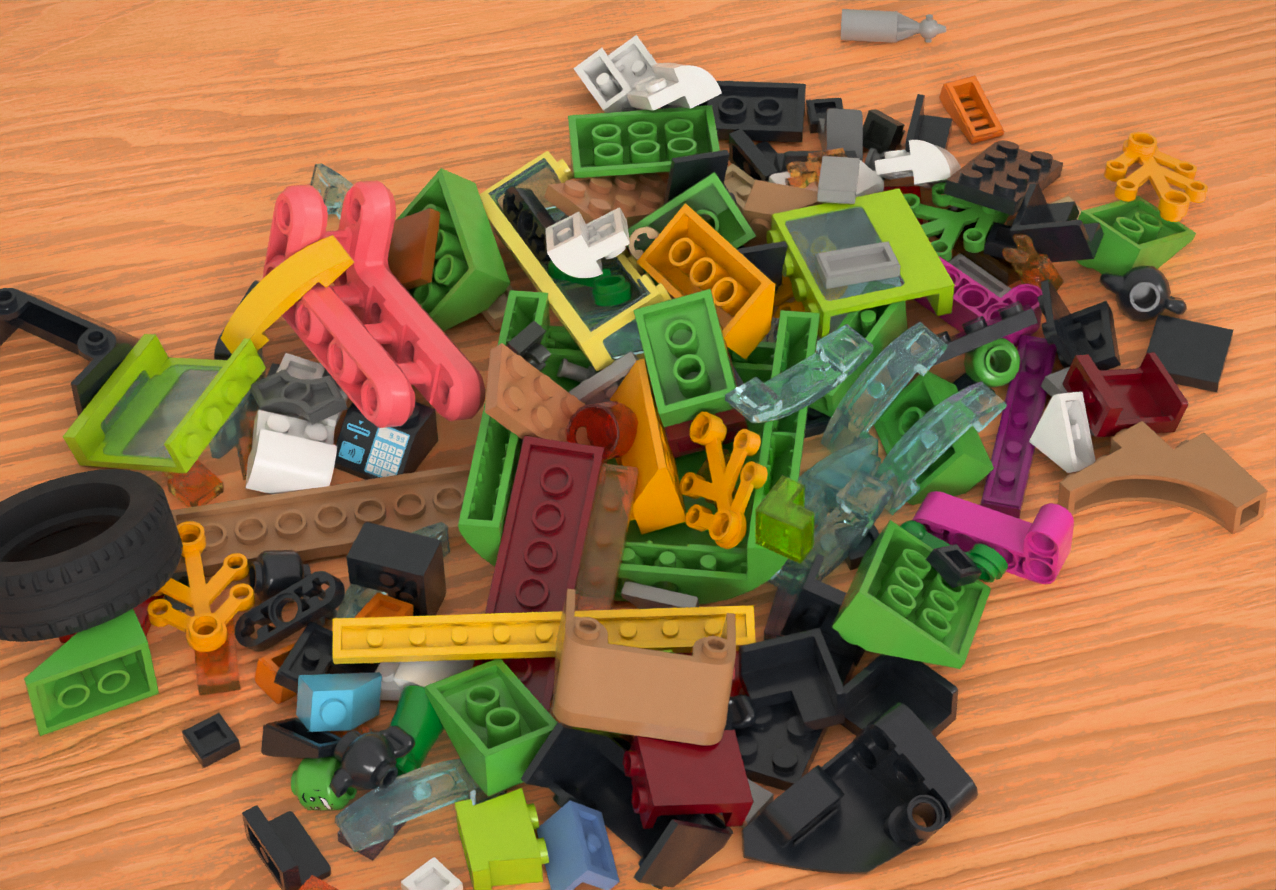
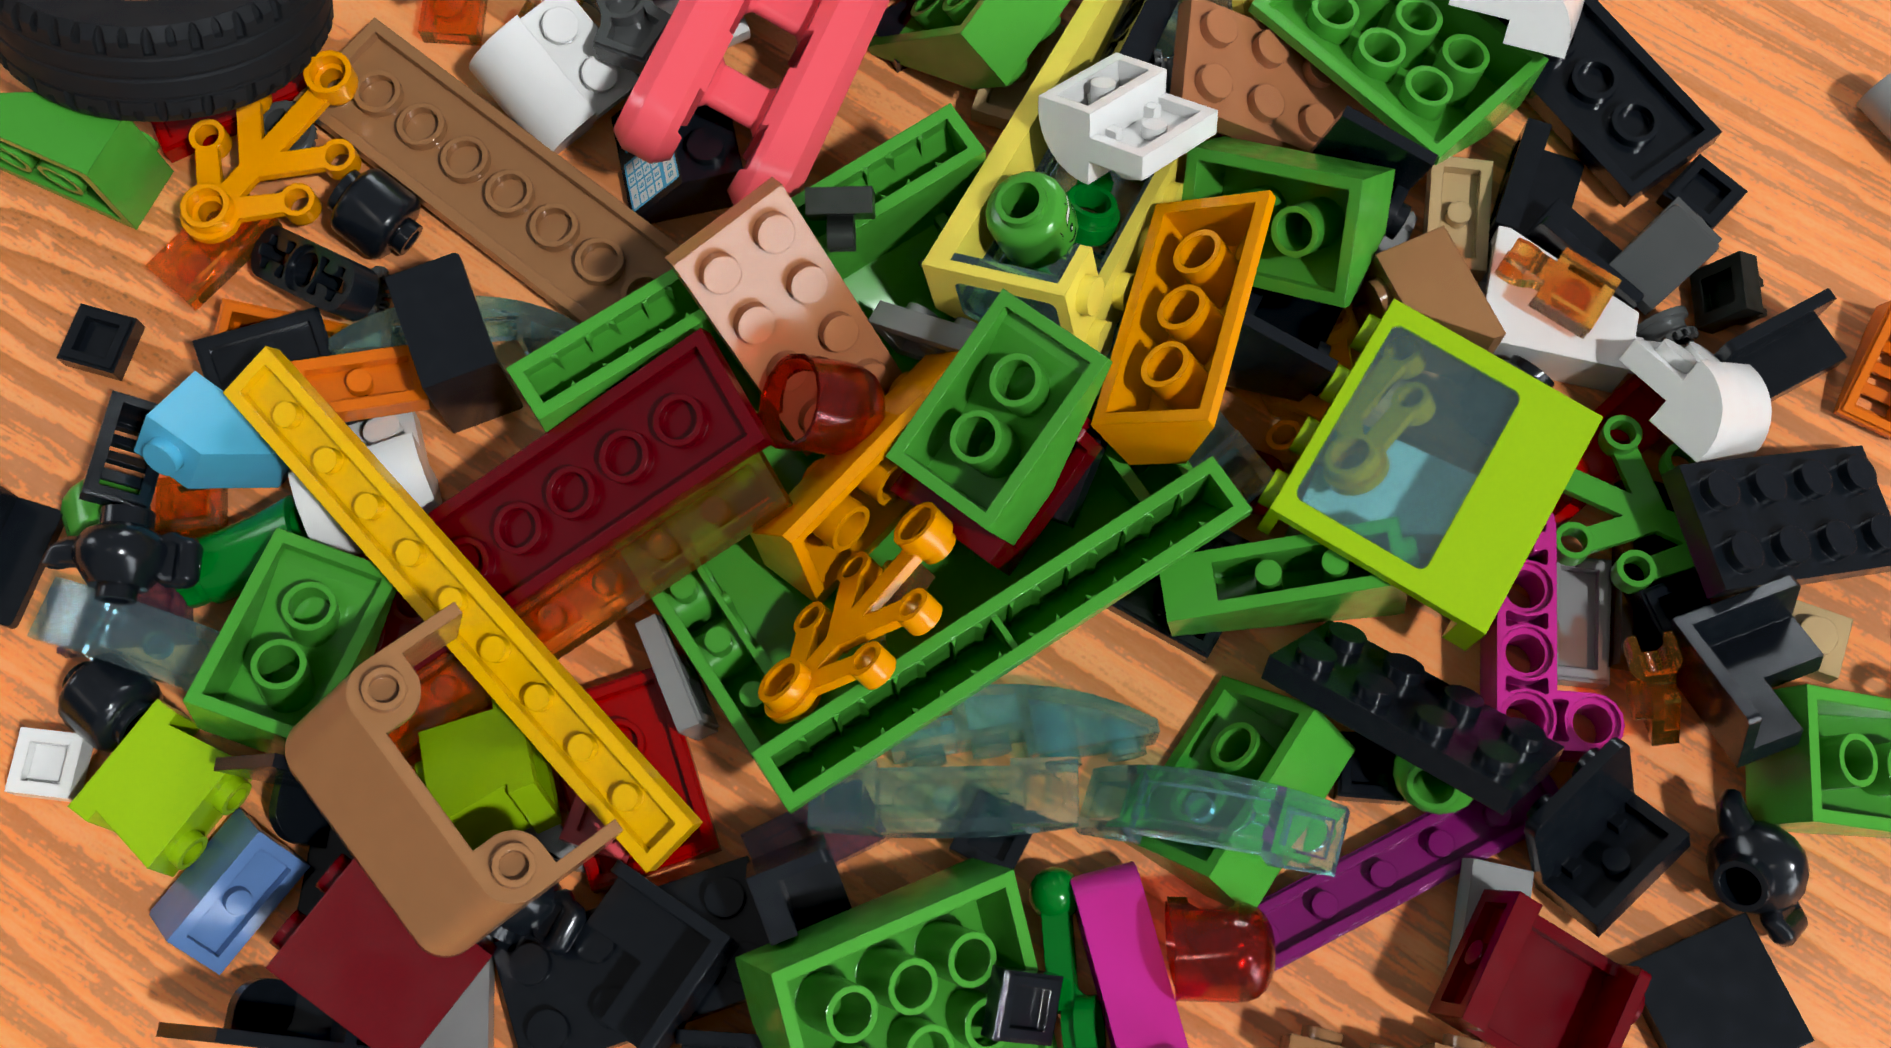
camera: 50 degrees right, 25 degrees up
(429, 835) = (105, 702): none -> black head
(598, 296) = (1031, 219): none -> bright green head
(651, 233) = (1217, 183): tan bush -> none
(784, 522) = (799, 770): clear neon green piece -> none
(805, 382) = (1086, 592): clear light blue slope -> none
(838, 180) = (1539, 329): light grey tile -> none
(857, 265) = (1394, 484): light grey tile -> none
(880, 384) = (1242, 674): clear light blue slope -> none
(1004, 472) = (1218, 951): none -> clear red helmet
(1065, 433) = (1393, 972): white slope -> none

